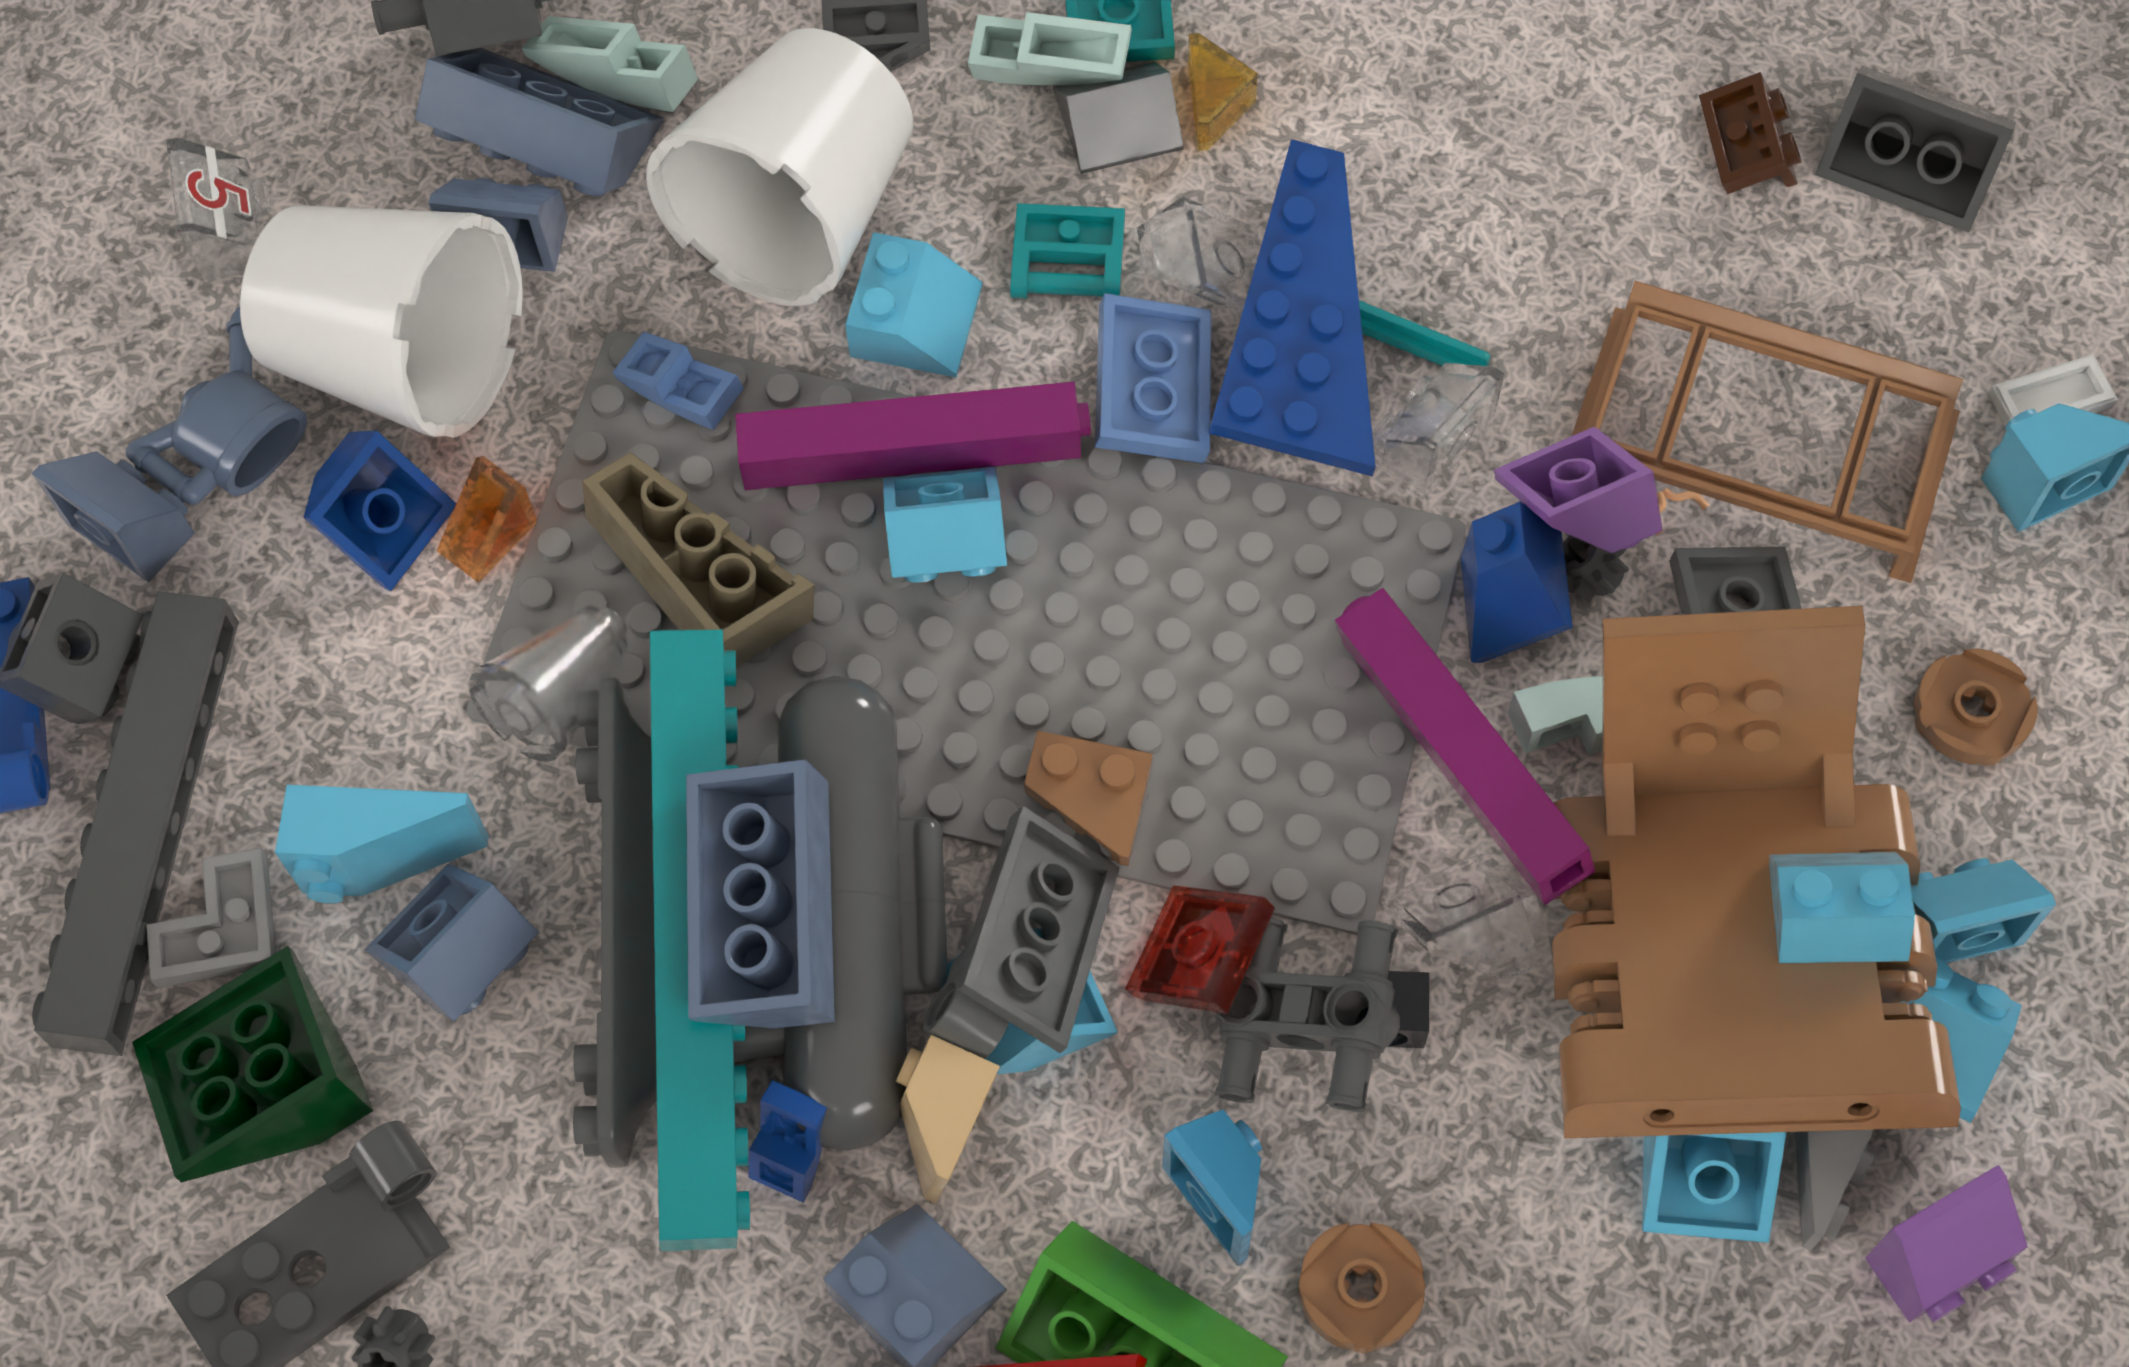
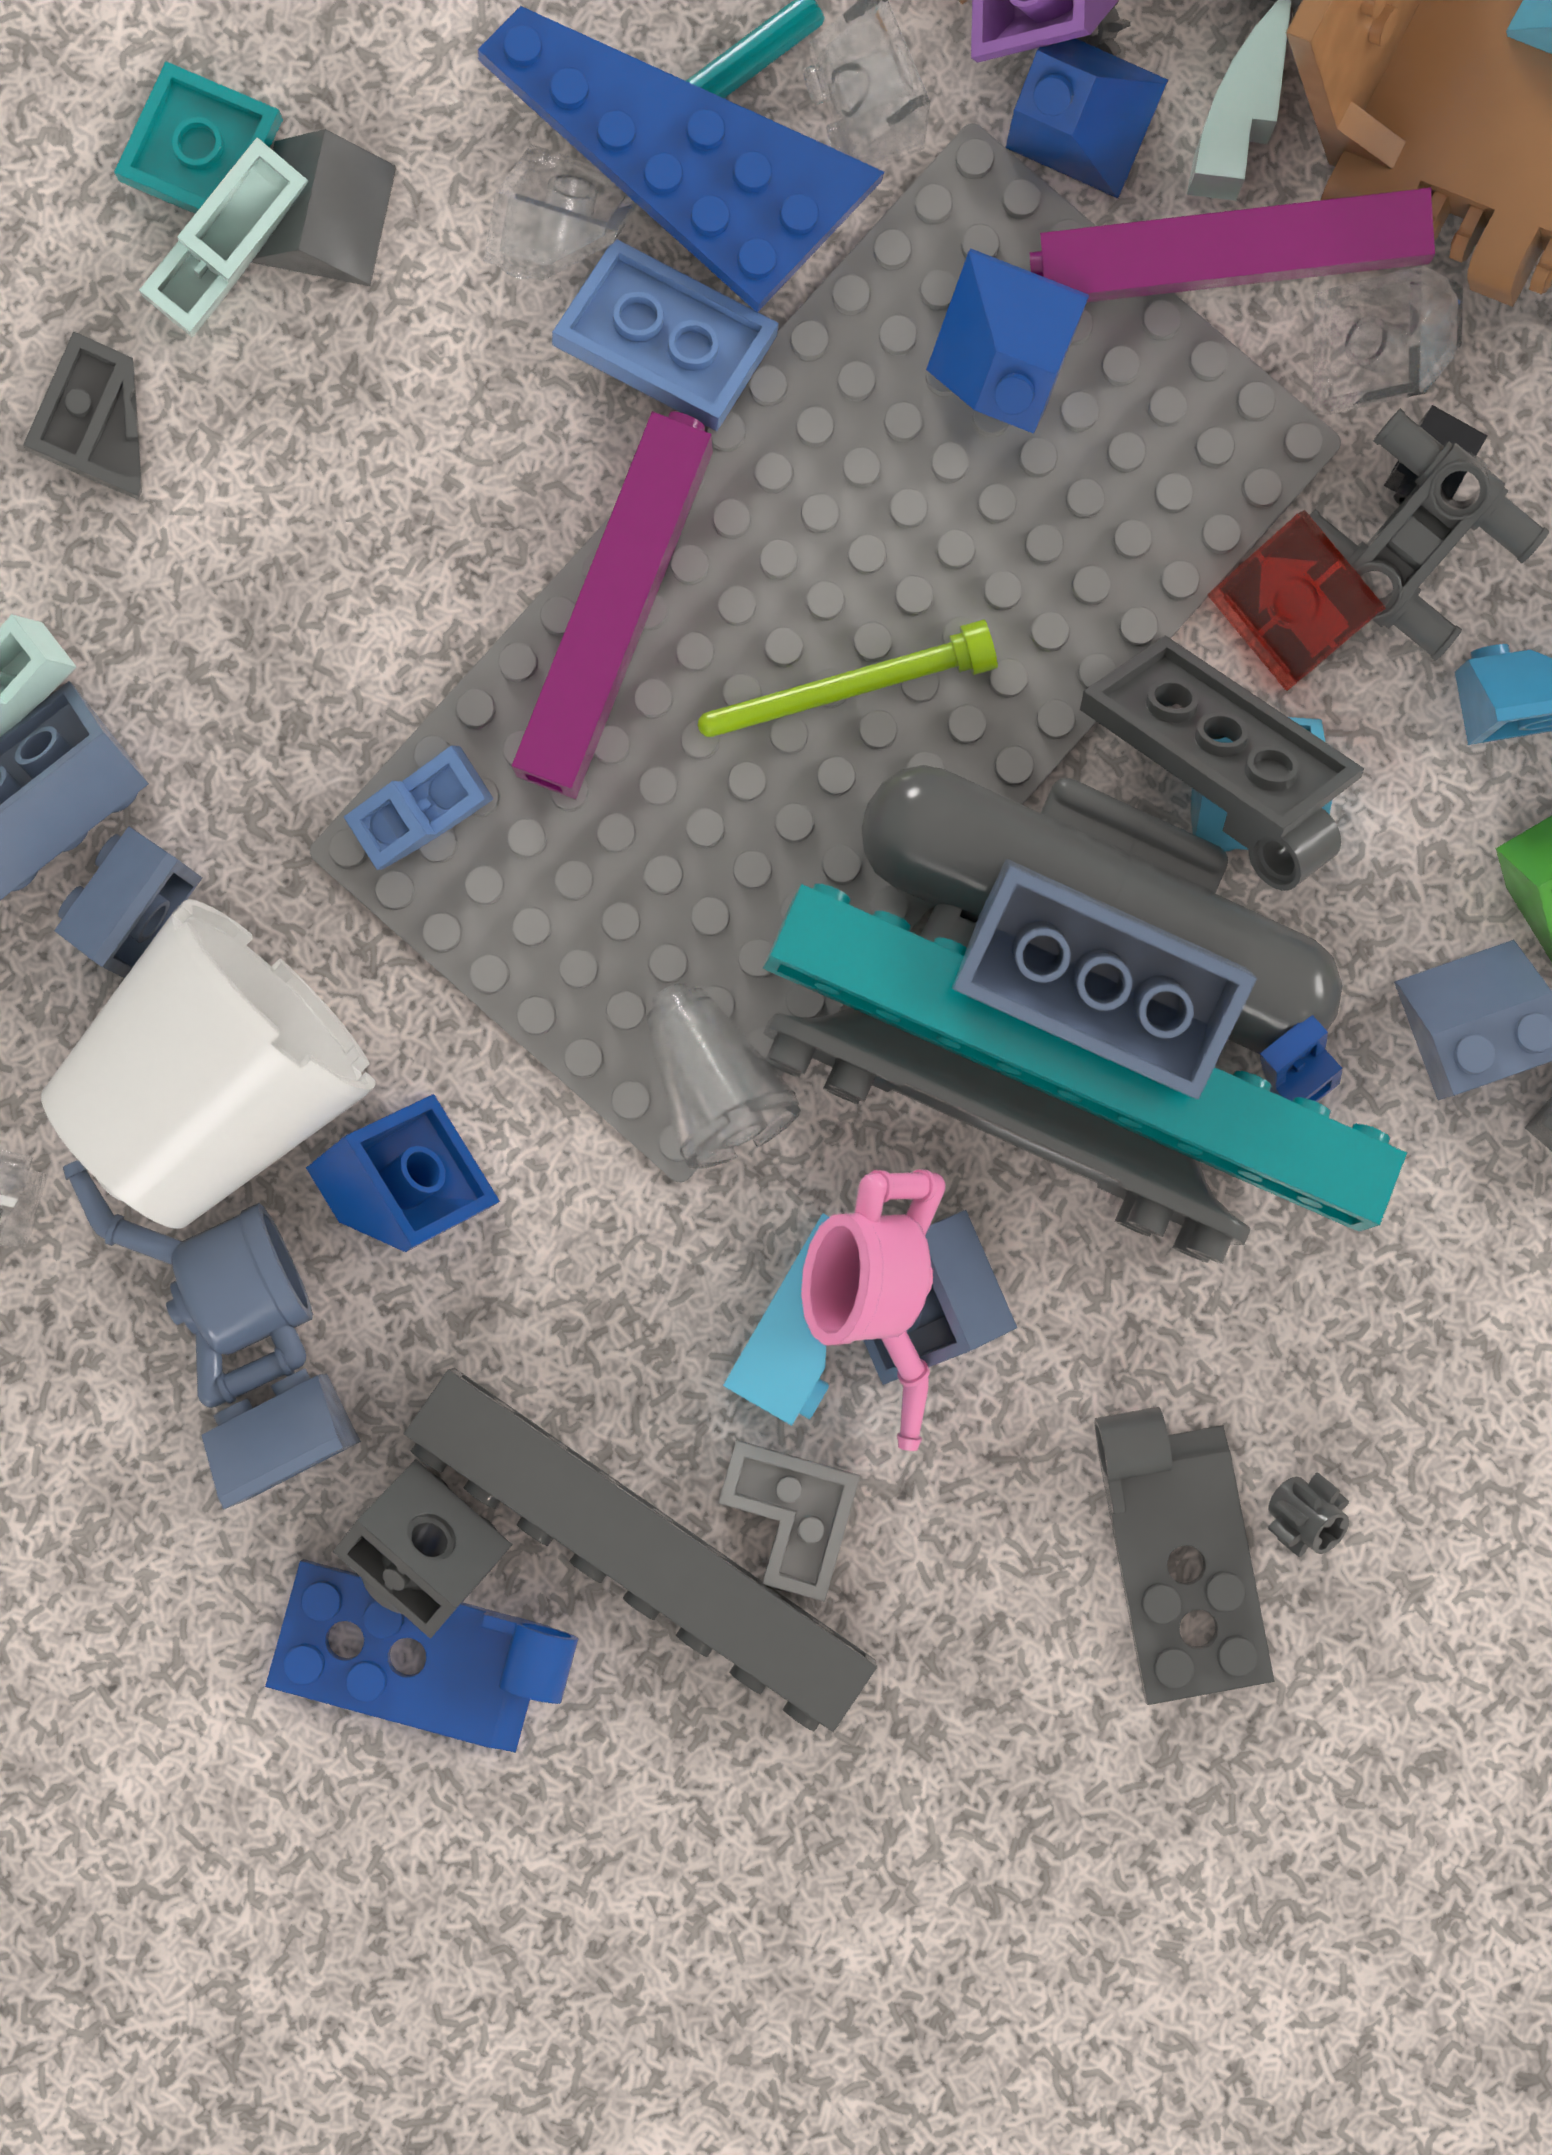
camera: 65 degrees left, 20 degrees up
(250, 1072) = (965, 1544): dark green slope -> none
(431, 855) = (872, 1277): none -> bright pink piece
(487, 520) = (481, 1074): clear orange slope -> none
(694, 561) = (656, 886): dark tan wedge -> none
(784, 166) = (244, 572): white cone -> none
(911, 307) = (452, 533): medium azure slope -> none
(941, 1107) = (1359, 912): tan slope -> none
(944, 524) = (728, 617): medium azure slope -> none
(1018, 713) = (967, 650): none -> lime piece
(1067, 237) = (450, 333): teal plate -> none
(1092, 787) = (1080, 619): medium nougat wing -> none
(1219, 89) = (351, 96): clear yellow slope -> none
(1283, 615) = (1005, 339): none -> blue slope

